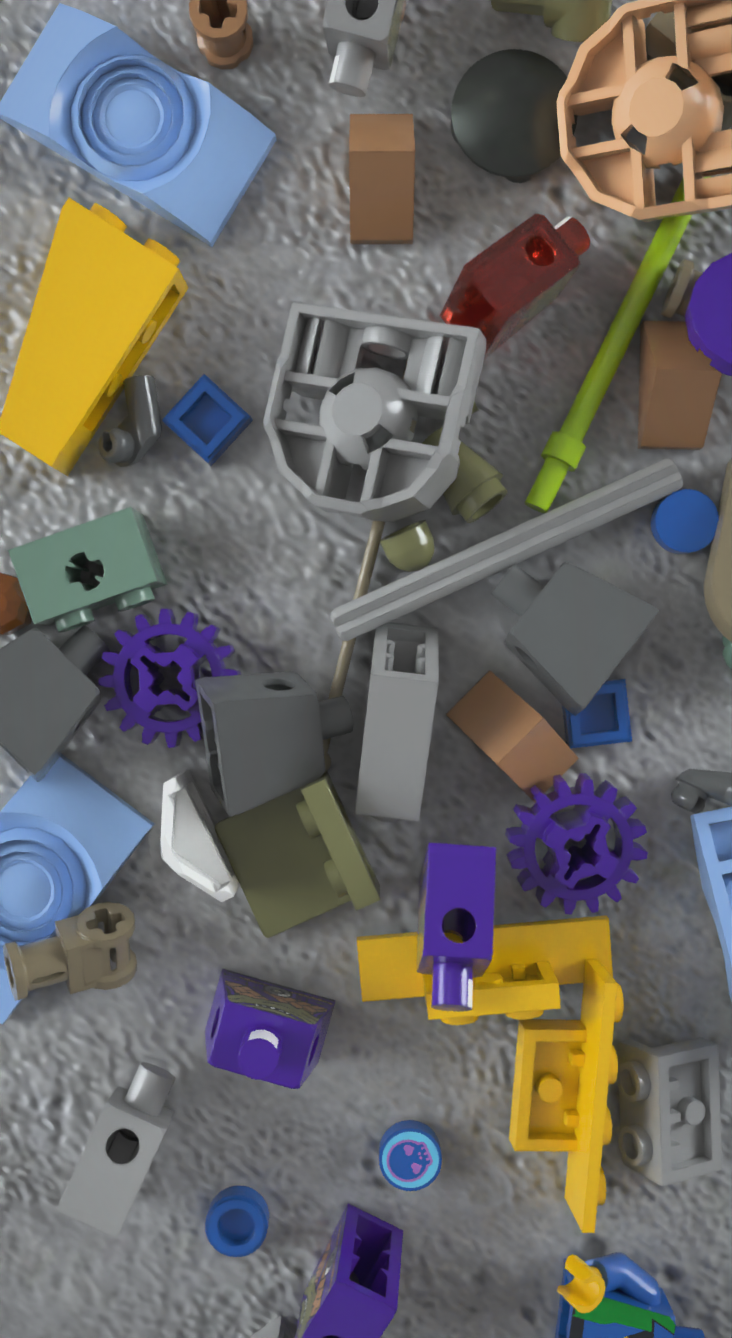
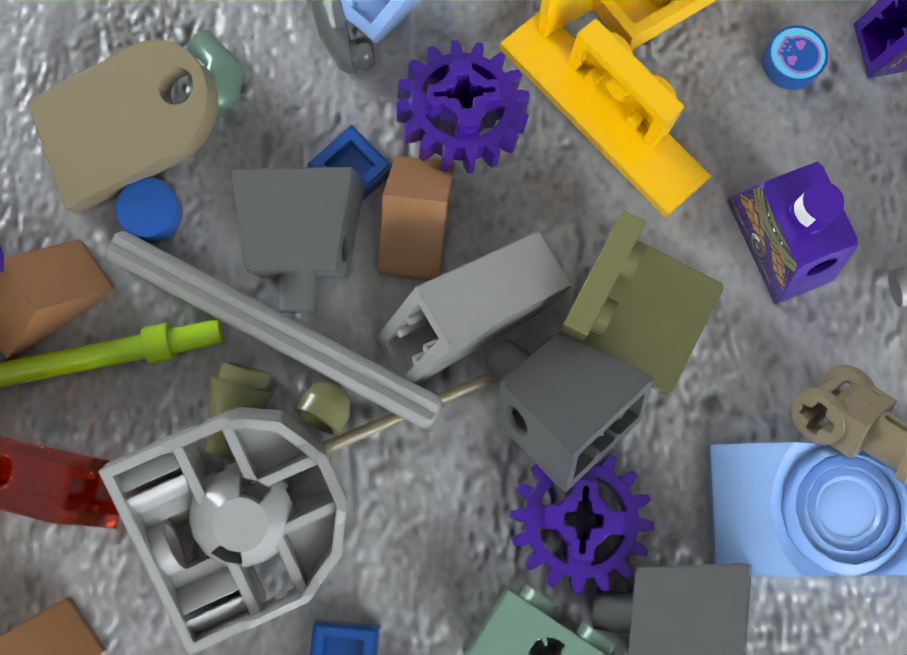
camera: 125 degrees left, 10 degrees down
(190, 839) = (698, 397): white slope -> none
(459, 900) = (569, 152): dark purple torso -> none

